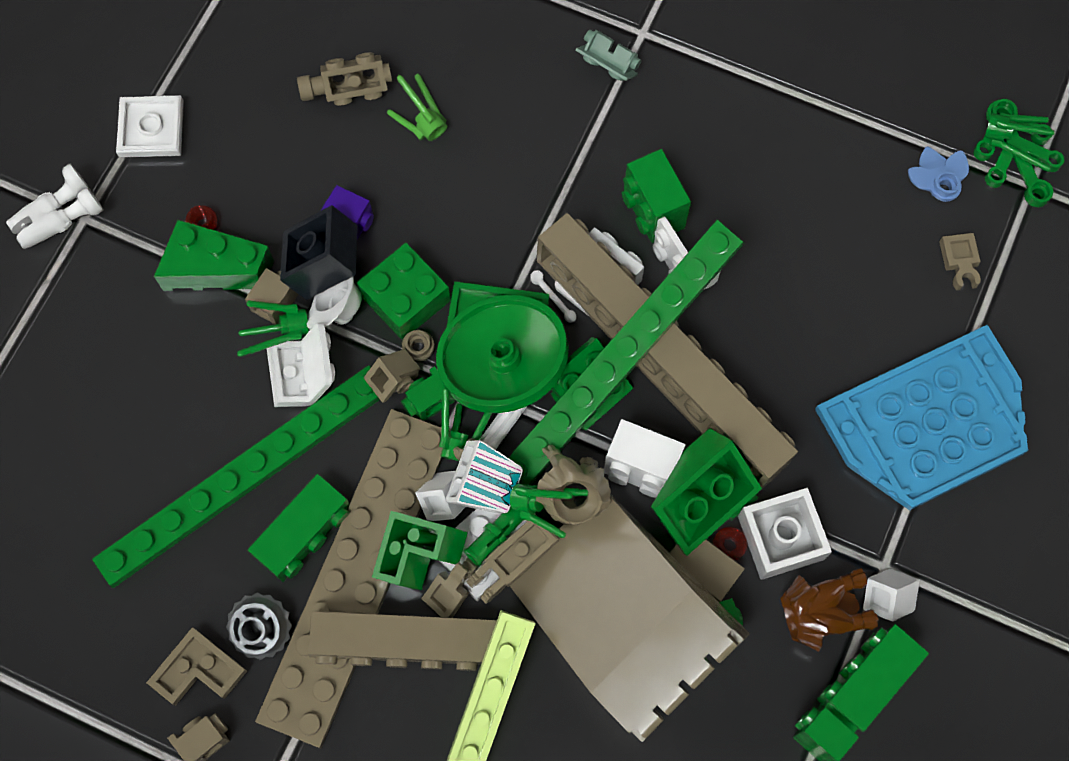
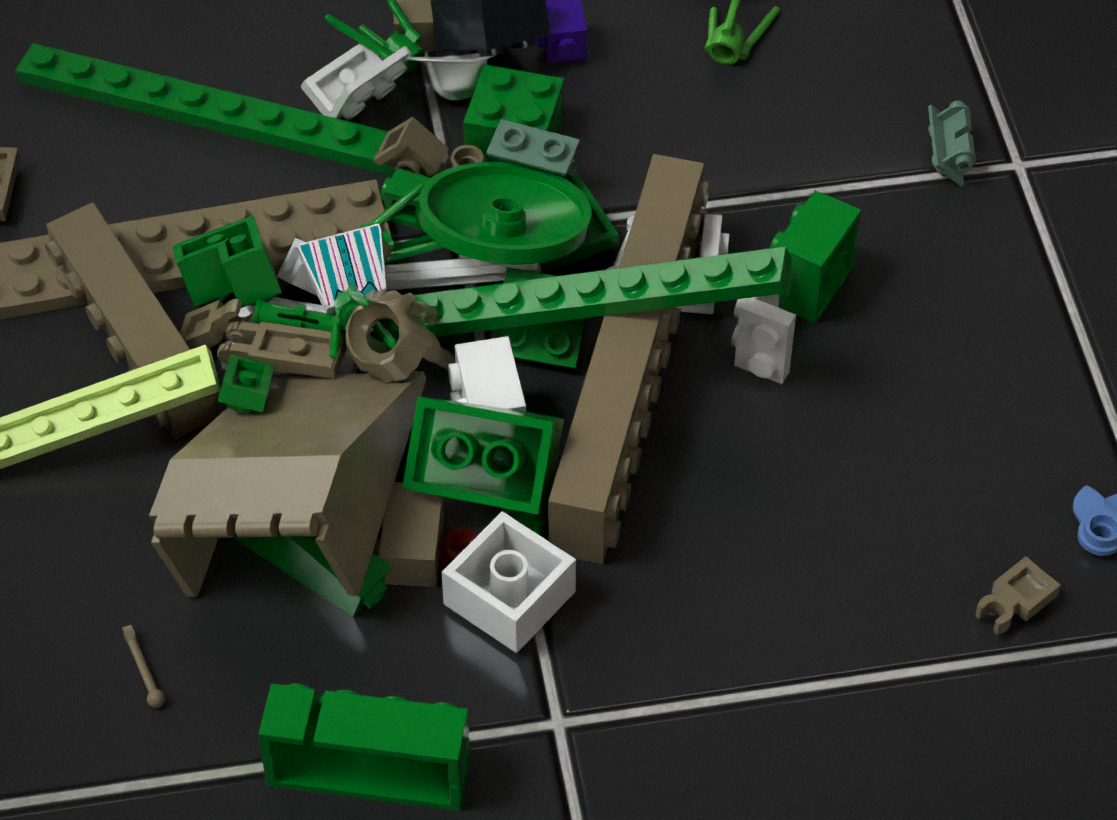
camera: 55 degrees right, 20 degrees down
(261, 617) = (53, 194): dark grey piece -> none
(300, 528) = (184, 173): green brick -> none
(455, 300) = (534, 148): none -> sand green hinge
(537, 601) = (245, 384): none -> green plate
(825, 608) = (430, 657): reddish brown piece -> none
(891, 594) = (523, 735): white panel -> none
(932, 420) = (783, 671): dark azure plate -> none

